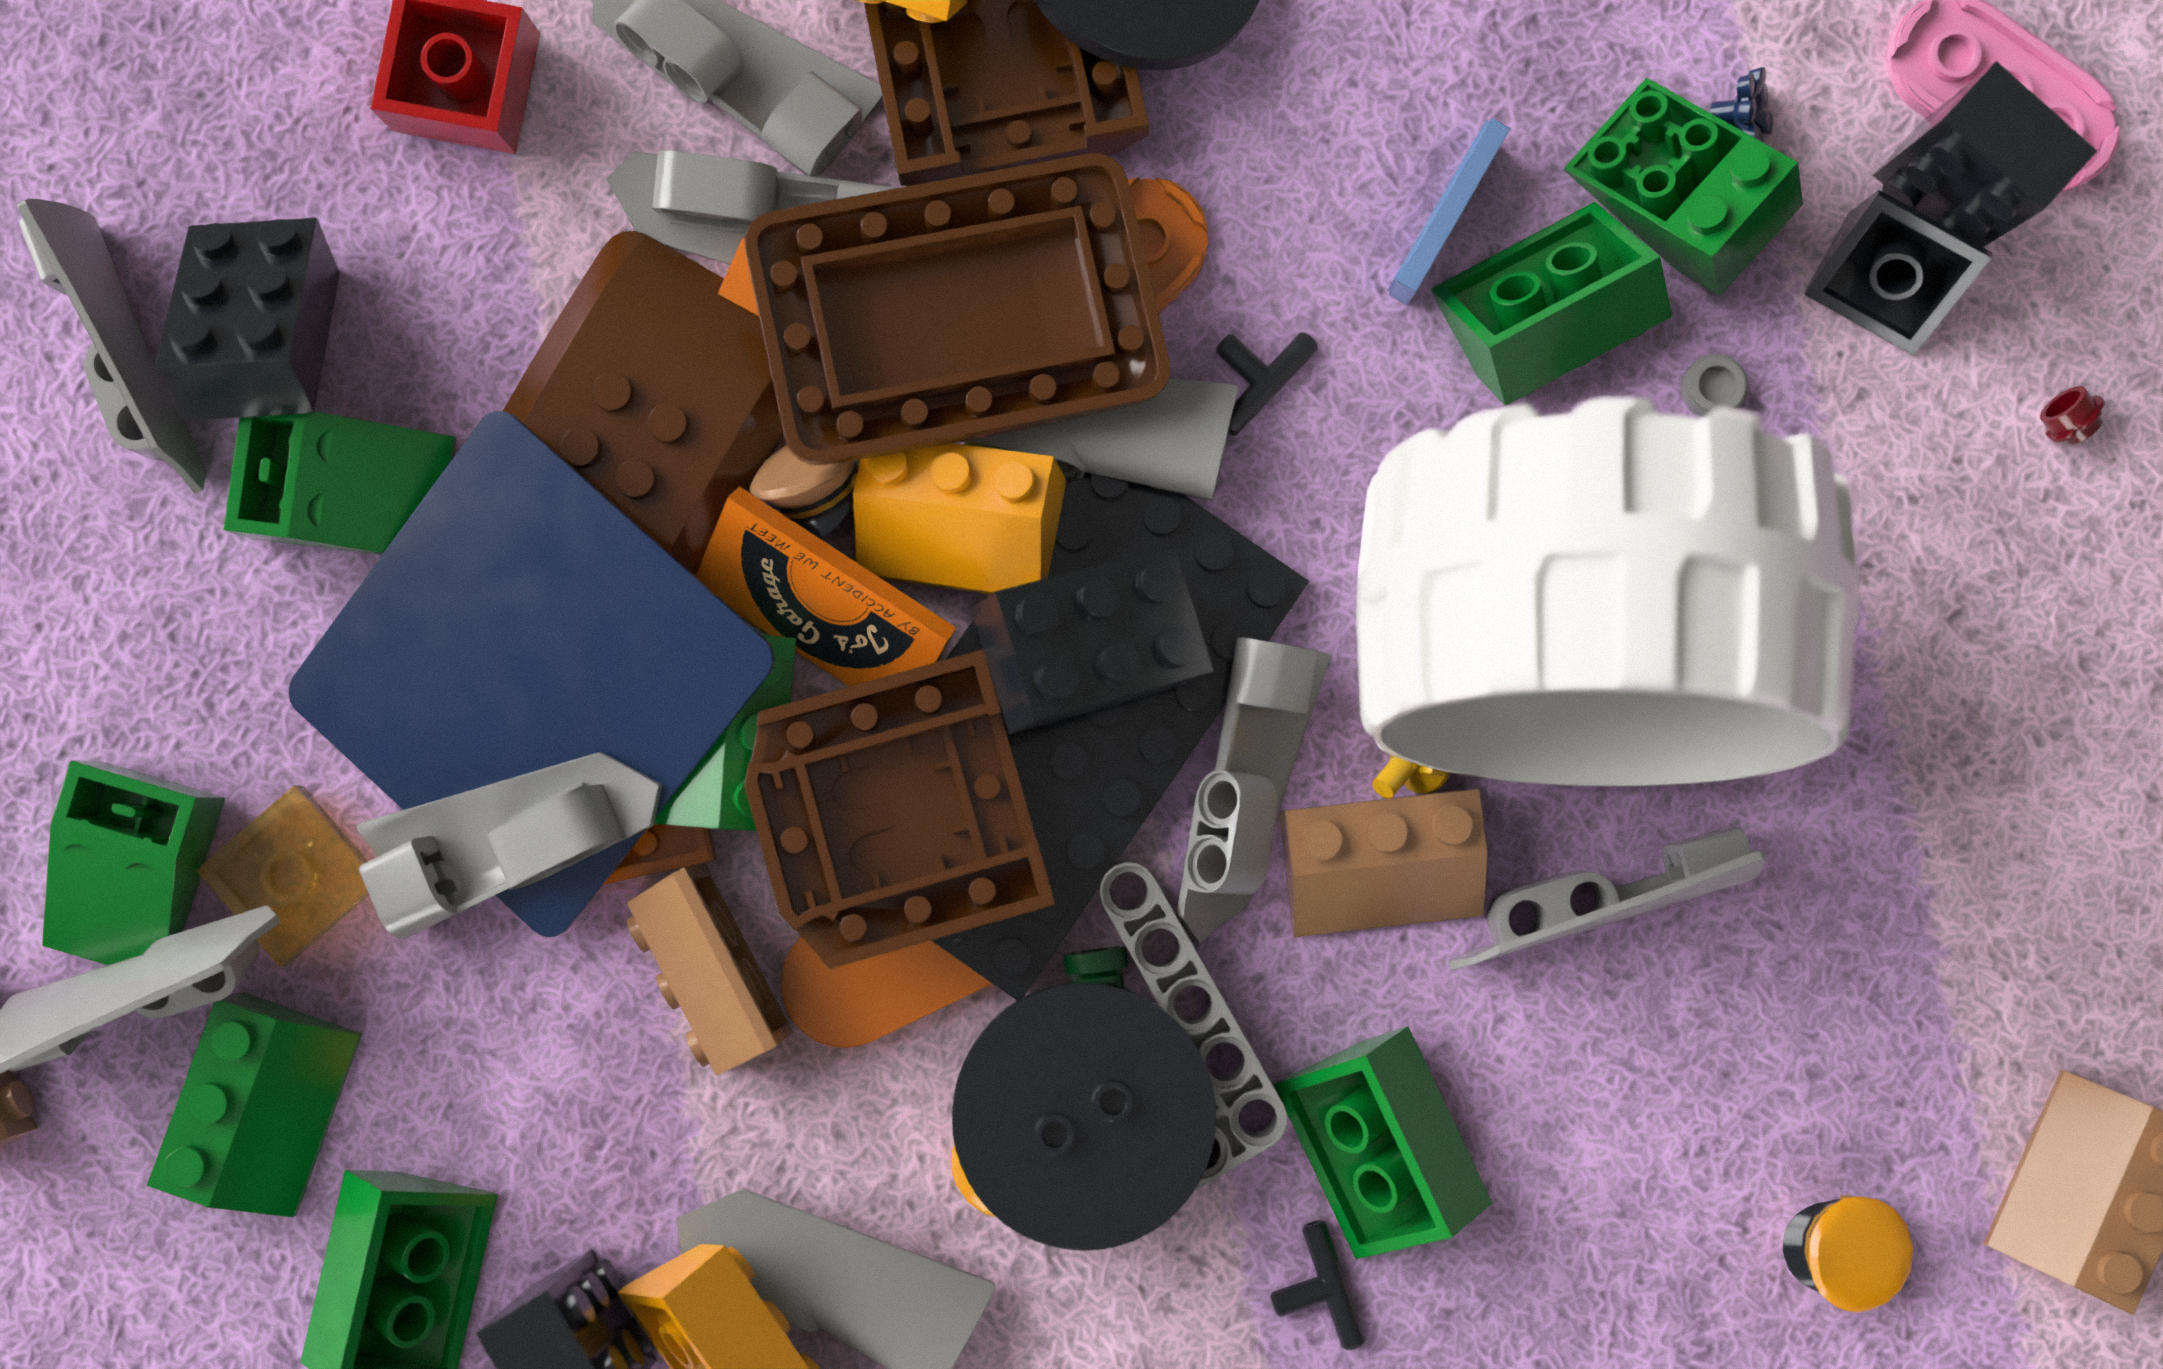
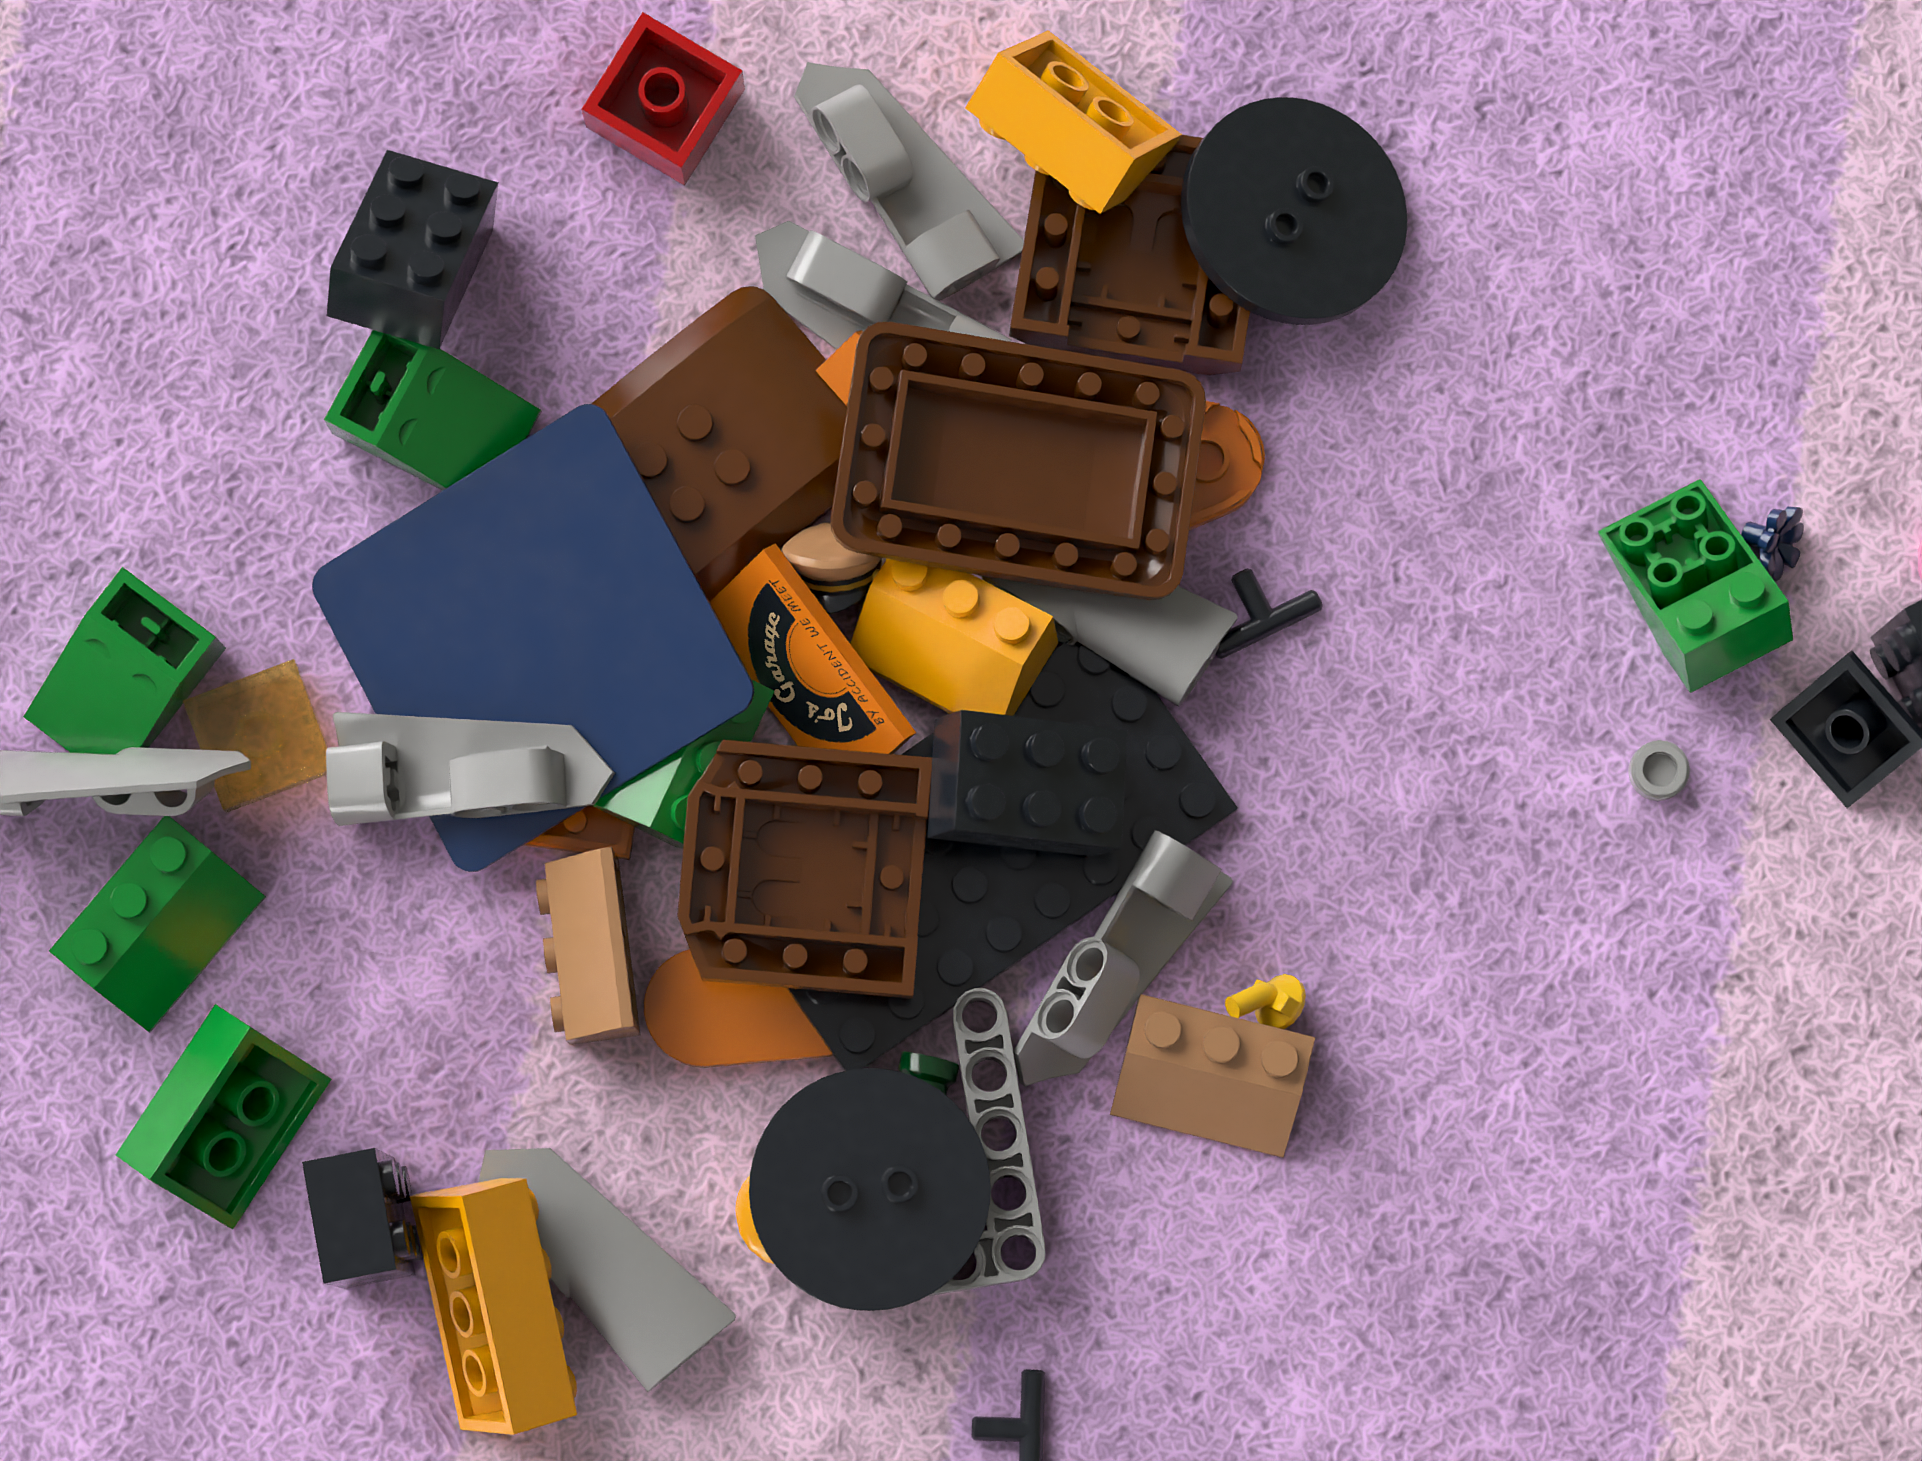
camera: 20 degrees right, 5 degrees down
(118, 364) = (277, 145): light grey panel -> none
(1384, 1145) = (1119, 1319): green slope -> none
(1448, 210) = (1478, 531): medium blue tile -> none
(1554, 301) = (1541, 644): green slope -> none
(1607, 598) = (1461, 905): white wheel -> none
(1692, 870) = (1484, 1180): light grey panel -> none

